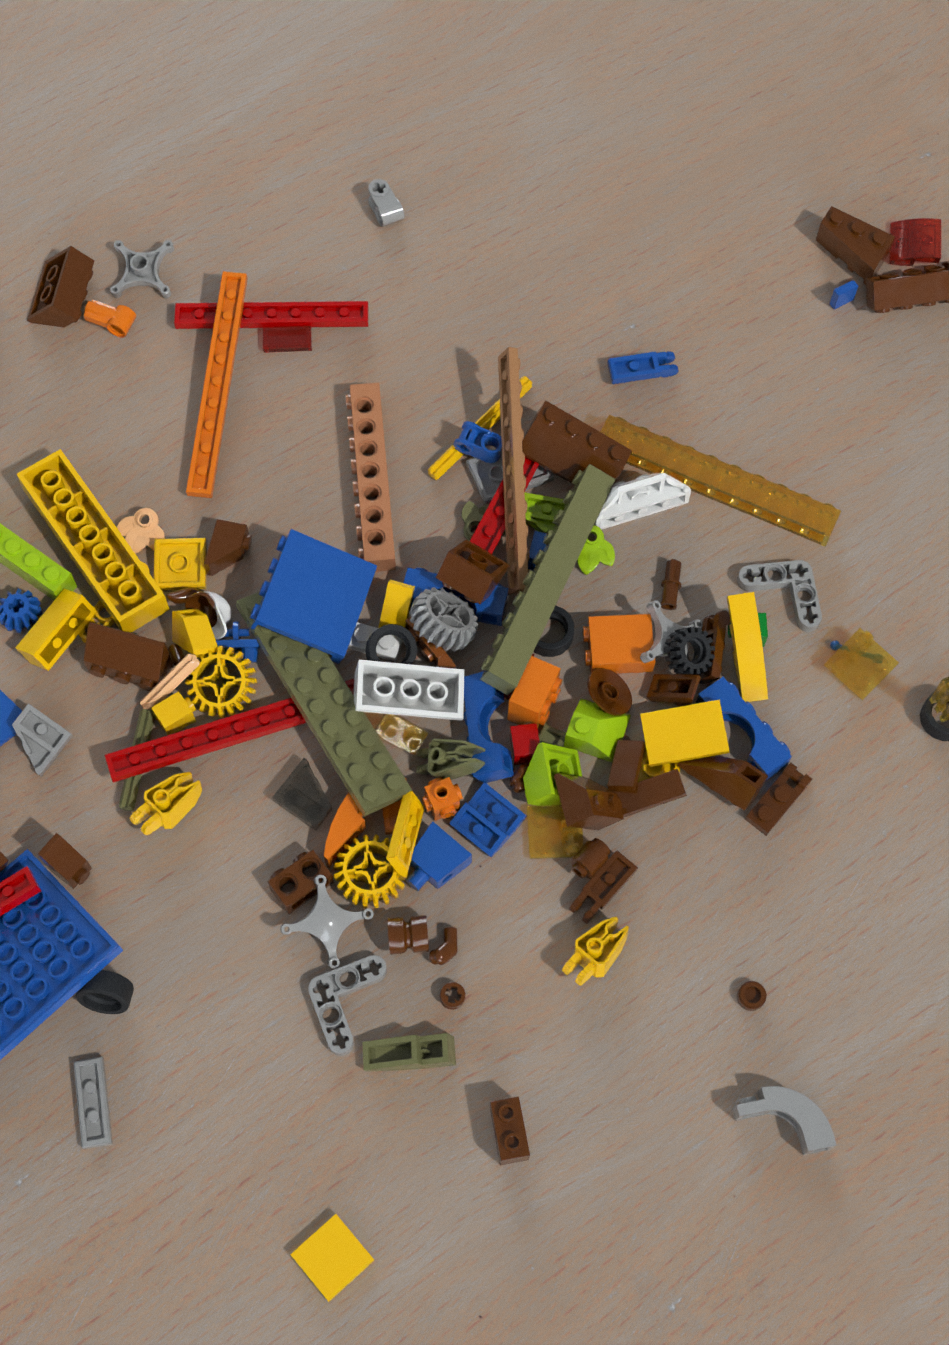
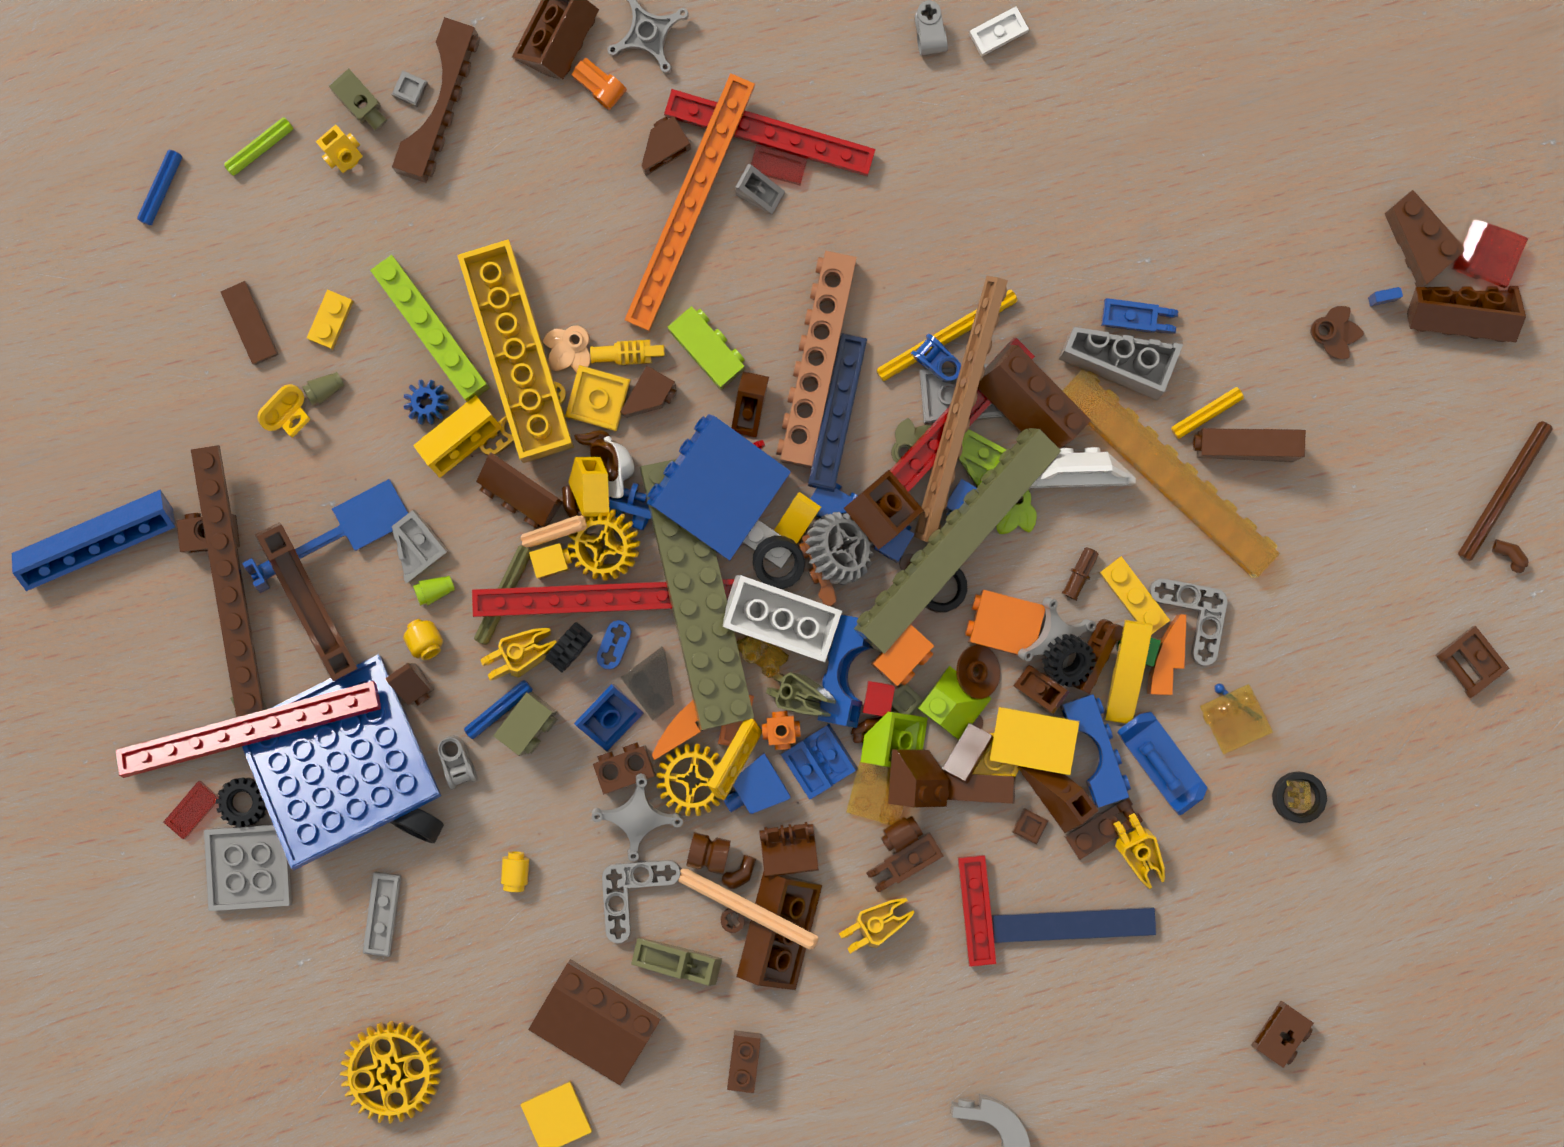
camera: 20 degrees right, 20 degrees up
(66, 773) = (433, 589): none -> lime cone
(68, 820) = (423, 639): none -> yellow head
(132, 929) = (456, 764): none -> light grey piece
(135, 1249) = (386, 1083): none -> yellow gear
(160, 865) = (497, 710): none -> blue axle
(182, 347) = (664, 145): none -> reddish brown slope
(191, 863) = (525, 724): none -> olive brick
(197, 518) = (627, 352): none -> yellow hinge
(213, 781) = (569, 647): none -> black tyre
(218, 1014) = (514, 872): none -> yellow brick
(251, 771) = (607, 642): none -> blue beam
(268, 494) = (707, 347): none -> lime brick
(270, 836) = (609, 717): none -> blue slope
(274, 358) = (758, 189): none -> light grey slope
(321, 521) = (749, 403): none -> reddish brown slope
(344, 1142) = (595, 1022): none -> reddish brown slope
(404, 512) = (837, 412): none -> dark blue tile
(442, 192) = (998, 31): none -> white plate
(464, 969) = (748, 909): none -> light nougat axle
(486, 905) = (788, 849): none -> reddish brown hinge
(502, 989) = (768, 956): none -> reddish brown slope
(640, 400) = (1123, 359): none -> light grey wedge
(688, 910) = (976, 910): none -> red plate
(709, 818) = (1030, 826): none -> reddish brown tile
(719, 584) = (1133, 594): none -> yellow plate
(731, 424) = (1207, 412): none -> yellow axle
(751, 996) = (1006, 1007): reddish brown tile -> none
(780, 434) = (1250, 444): none -> reddish brown slope
(780, 631) = (1169, 657): none -> orange slope
(785, 896) = (1074, 924): none -> dark blue tile
(809, 723) = (1163, 762): none -> blue piece
(817, 334) = (1340, 332): none -> reddish brown plate
(821, 805) = (1140, 850): none -> yellow hinge

